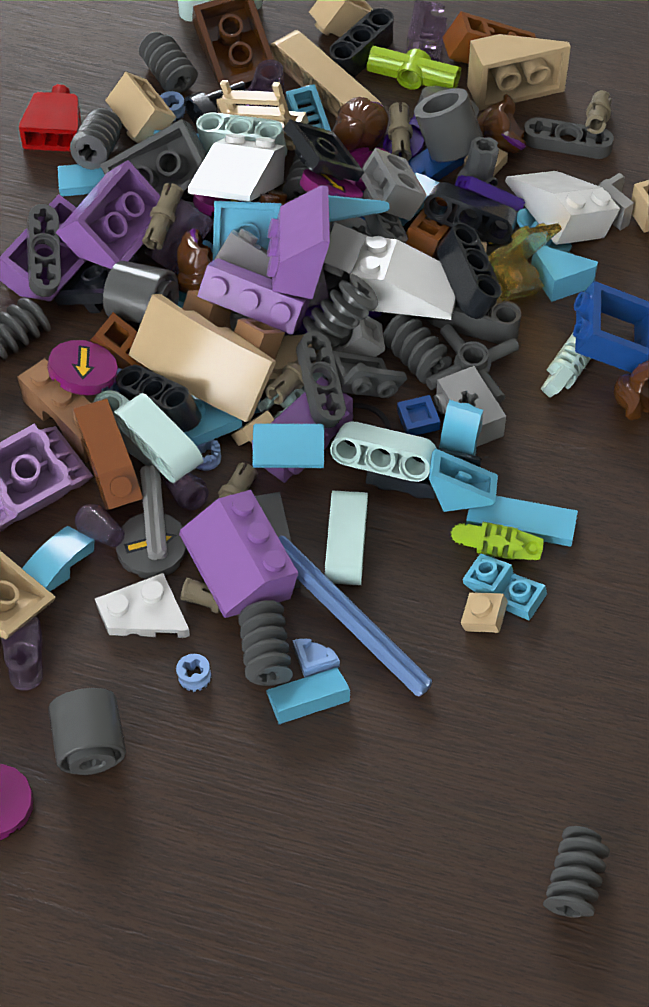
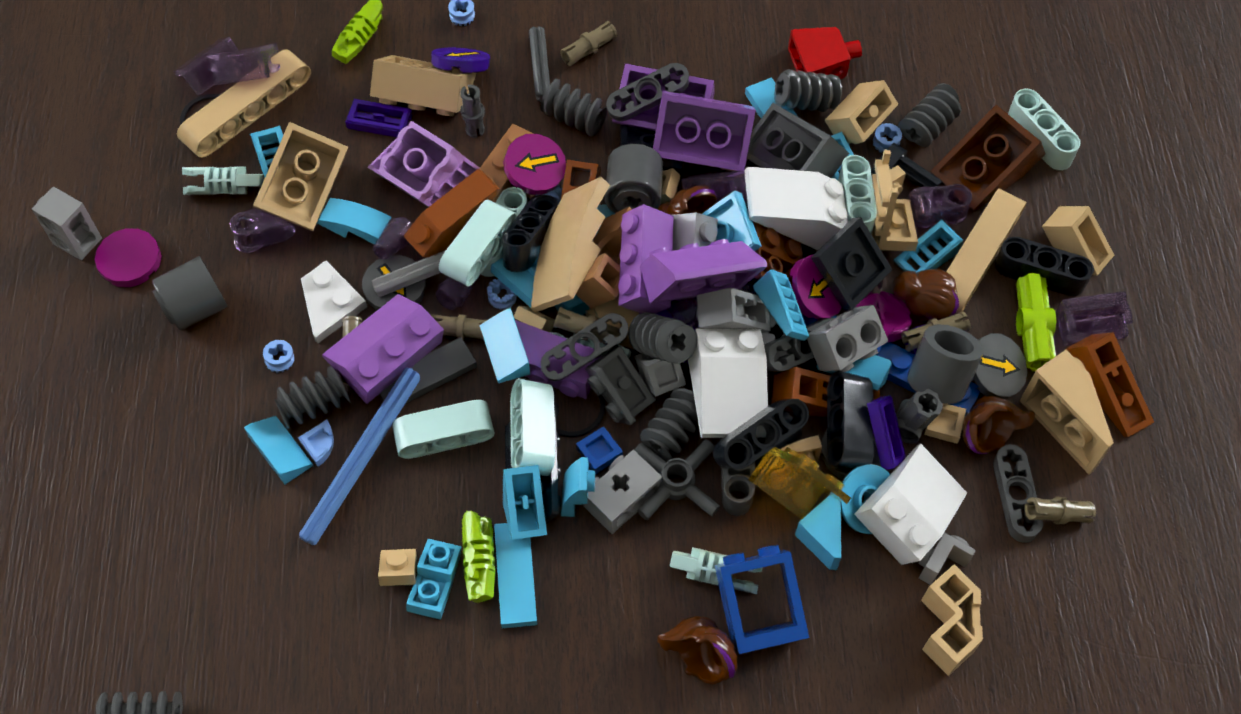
camera: 70 degrees right, 5 degrees up
(162, 216) = (720, 164): dark tan pin -> none

